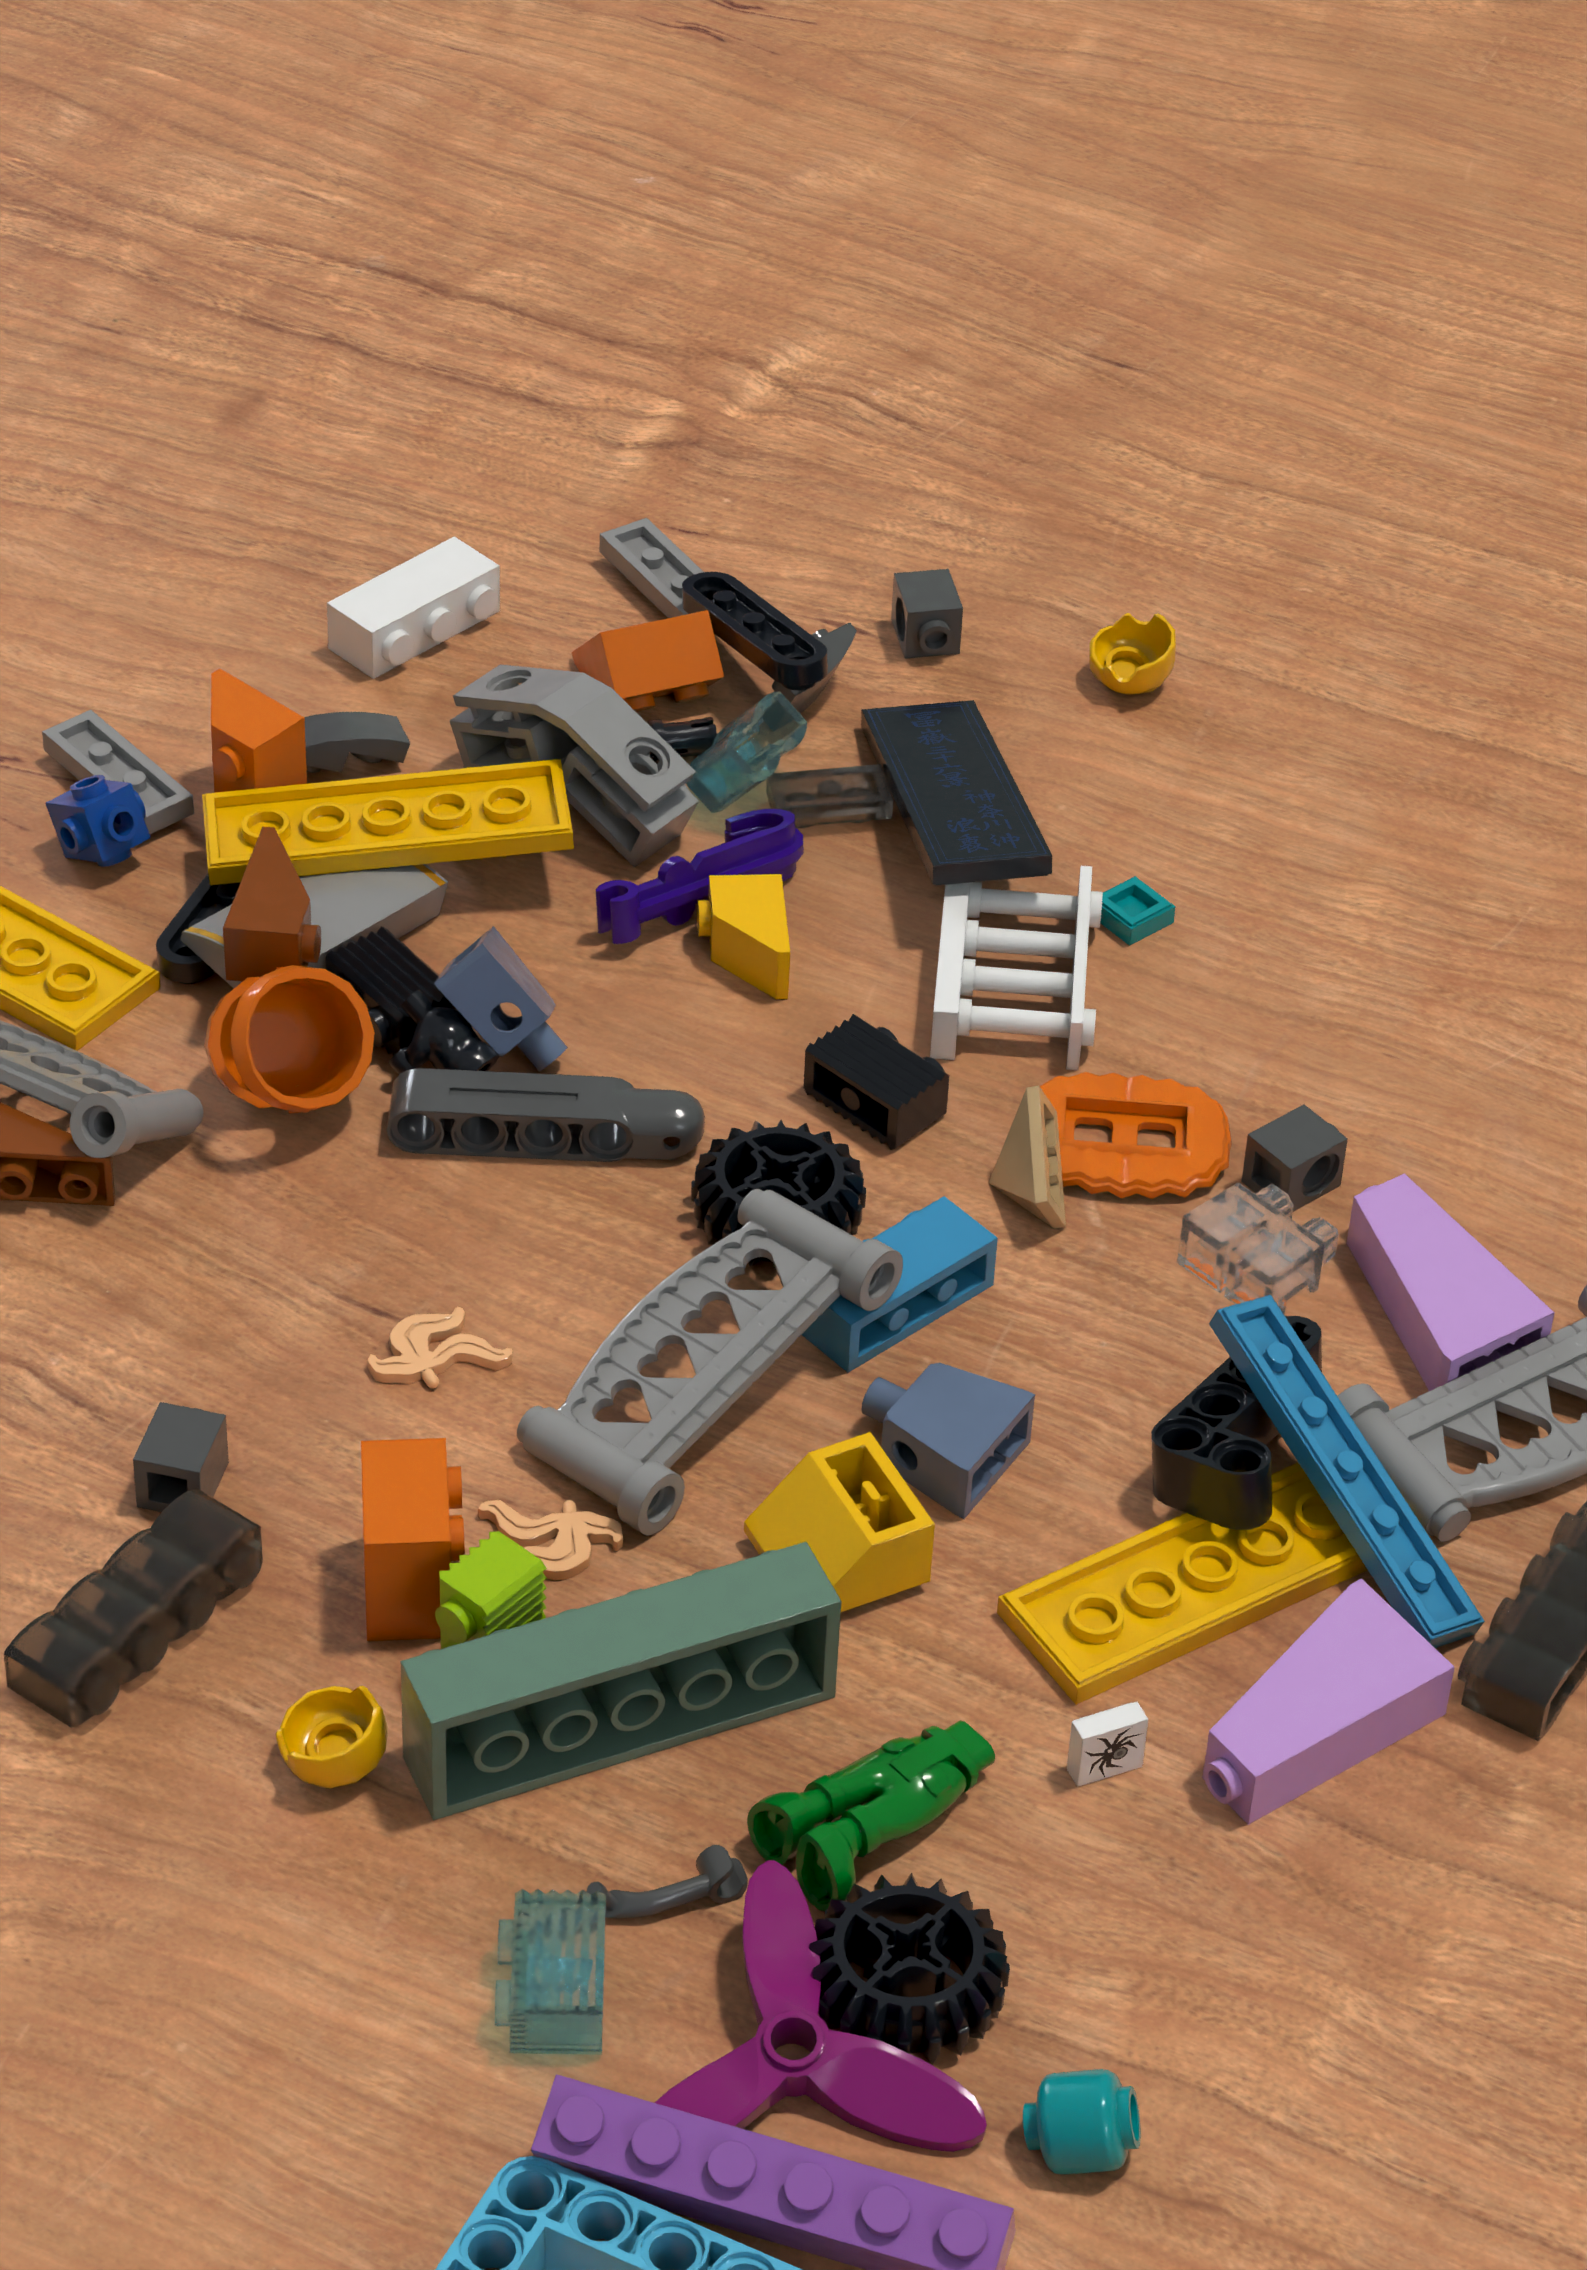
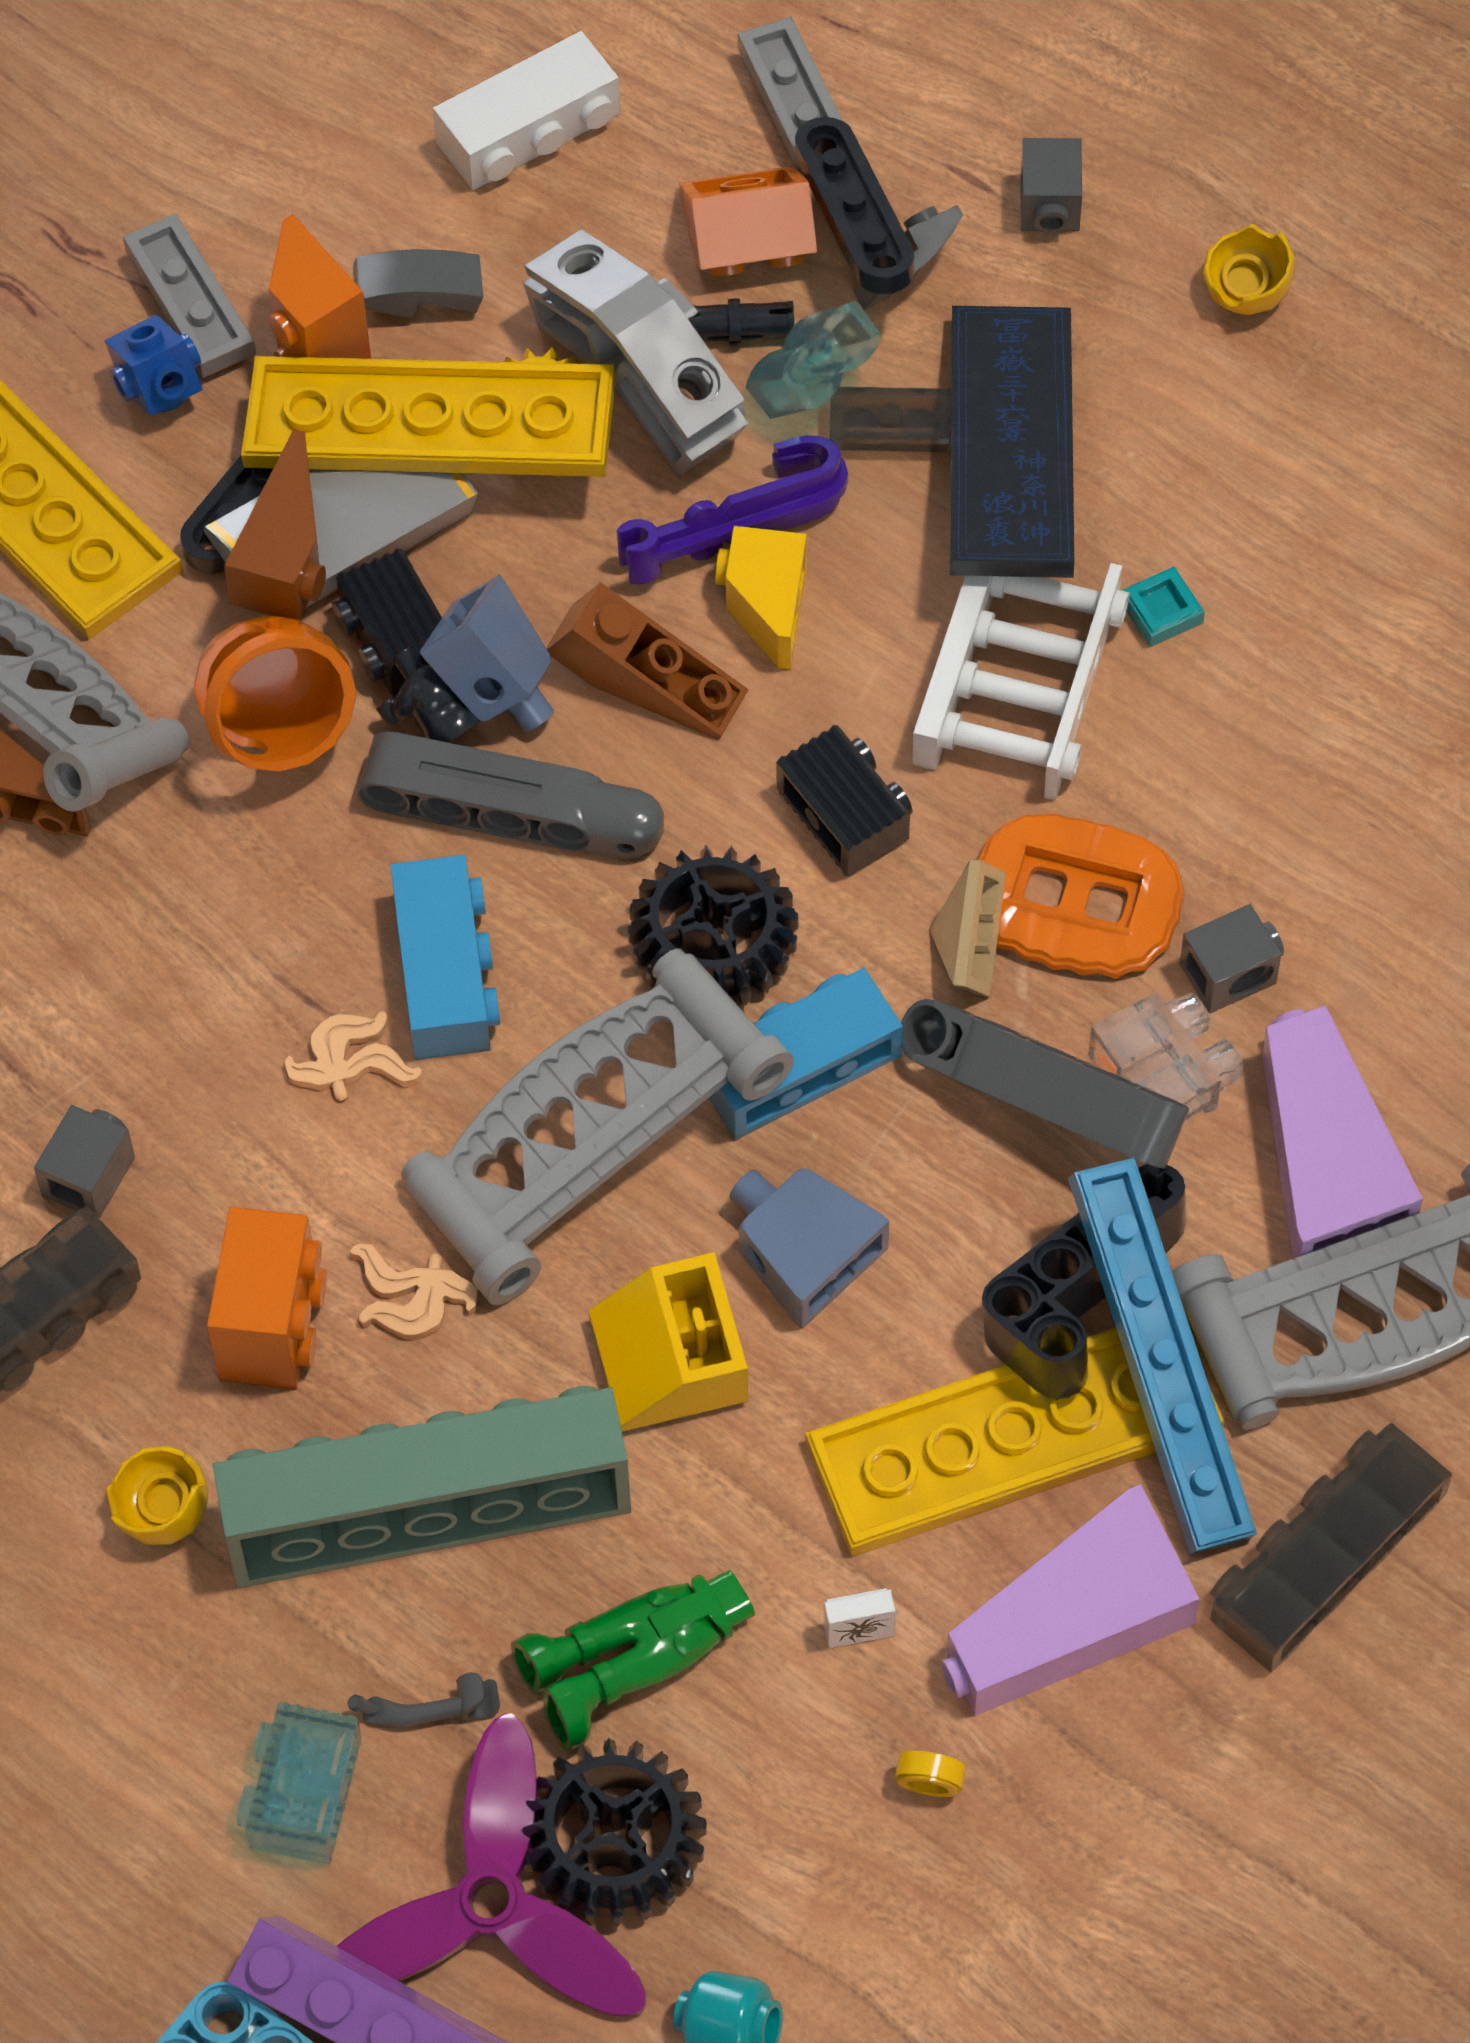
camera: 15 degrees right, 20 degrees up
(490, 1591) = (319, 1394): lime brick -> none
(511, 1249) = (444, 956): none -> dark azure brick
(642, 998) = (644, 663): none -> dark orange slope
(1148, 1263) = (1044, 1081): none -> dark grey piece
(1224, 1868) = (930, 1773): none -> yellow tile

